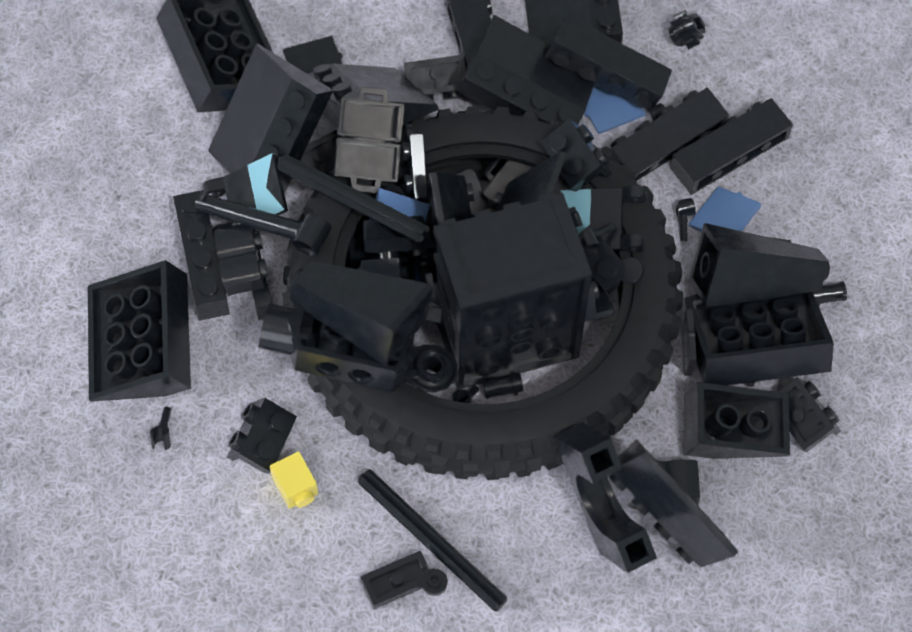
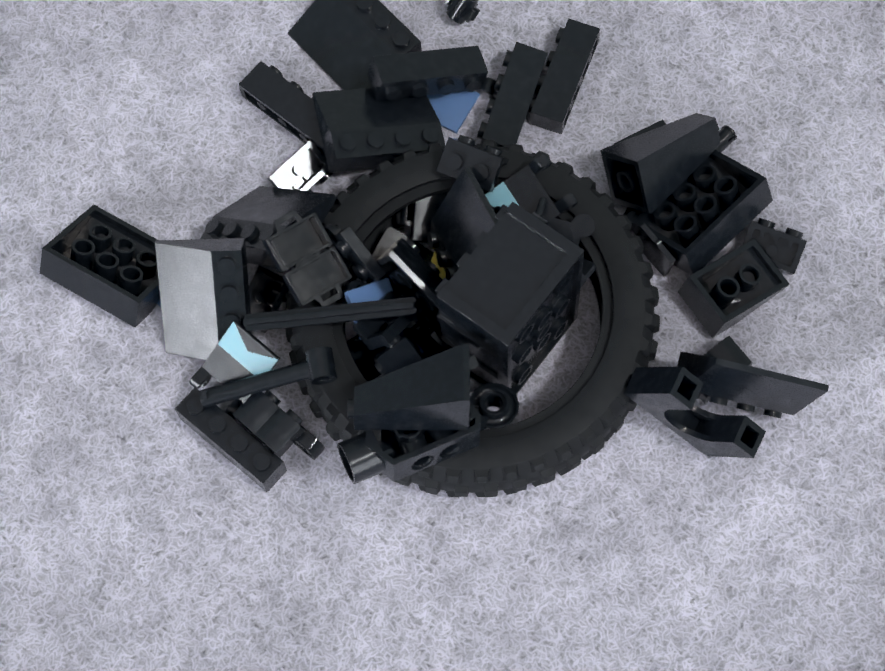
camera: 30 degrees left, 5 degrees up
(139, 334) = (231, 537): black slope -> none
(161, 432) = (310, 601): black hand -> none
(261, 434) = (389, 548): black bracket -> none
(294, 481) = (444, 565): light yellow brick -> none
(313, 53) = (189, 219): black piece -> none
(402, 579) = (583, 581): black hinge -> none
(432, 540) = (580, 535): black axle -> none
(465, 396) = (524, 408): black hand -> none
(503, 385) = (540, 378): black pin -> none
(684, 209) = (566, 150): black hand -> none
(726, 210) = (598, 130): medium blue piece -> none

